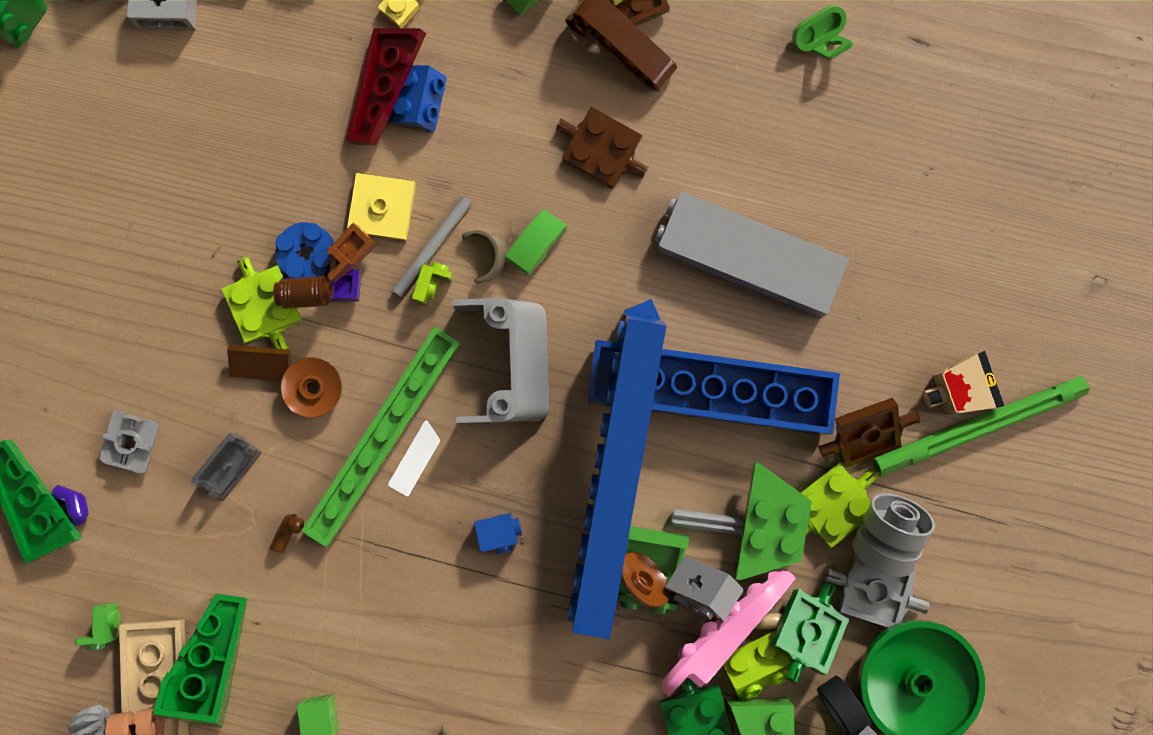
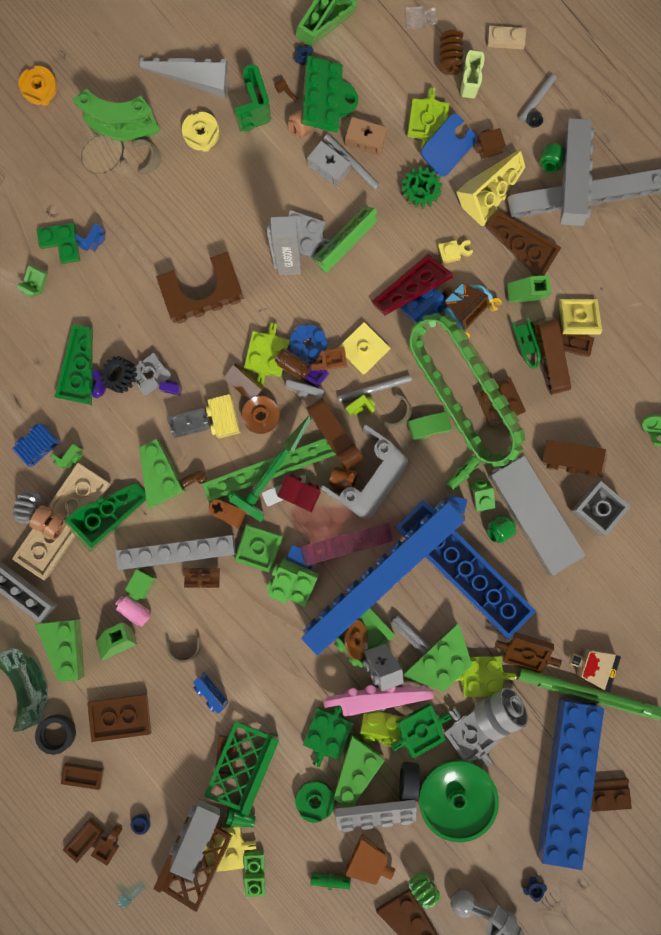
camera: 40 degrees right, 0 degrees up
(46, 643) = (35, 444): none -> blue brick
(75, 472) = (110, 373): none -> black tyre
(108, 325) = (182, 307): none -> reddish brown arch
(169, 438) = (170, 387): none -> dark purple plate
(172, 144) = (284, 245): none -> light grey brick
(194, 120) = (309, 234): none -> light grey plate
(236, 561) = (159, 475): none -> bright green wedge
(254, 84) = (345, 238): none -> bright green fence
(265, 425) = (223, 416): none -> light yellow brick
(332, 644) = (176, 552): none -> light grey brick
(343, 314) = (304, 390): none -> light grey plate
(365, 542) = (231, 514): none -> dark orange piece
(378, 510) = (248, 502): none -> green piece
(390, 650) = (202, 578): none -> reddish brown hips
(422, 341) = (334, 434): none -> reddish brown beam
(435, 449) = (299, 493): none -> dark red brick
(435, 558) = (258, 548): none -> bright green plate
(469, 56) = (468, 303): none -> reddish brown torso
(476, 389) = (343, 478): none -> dark orange piece
(509, 570) = (291, 583): none -> bright green plate
(525, 188) = (445, 394): none -> bright green piece
(541, 469) = (346, 544): none -> clear pink beam
(586, 53) = (528, 347): none -> green piece
(621, 270) = (462, 473): none -> bright green pin
(667, 279) = (483, 495): none -> bright green bracket
(721, 304) = (501, 529): none -> green head
(745, 148) = (575, 458): none -> reddish brown wedge
(823, 187) = (600, 508): none -> light grey brick
(1041, 555) = (570, 784): none -> blue brick
(1097, 531) = (611, 795): none -> reddish brown plate
(1102, 725) = (539, 893): none -> dark blue plate

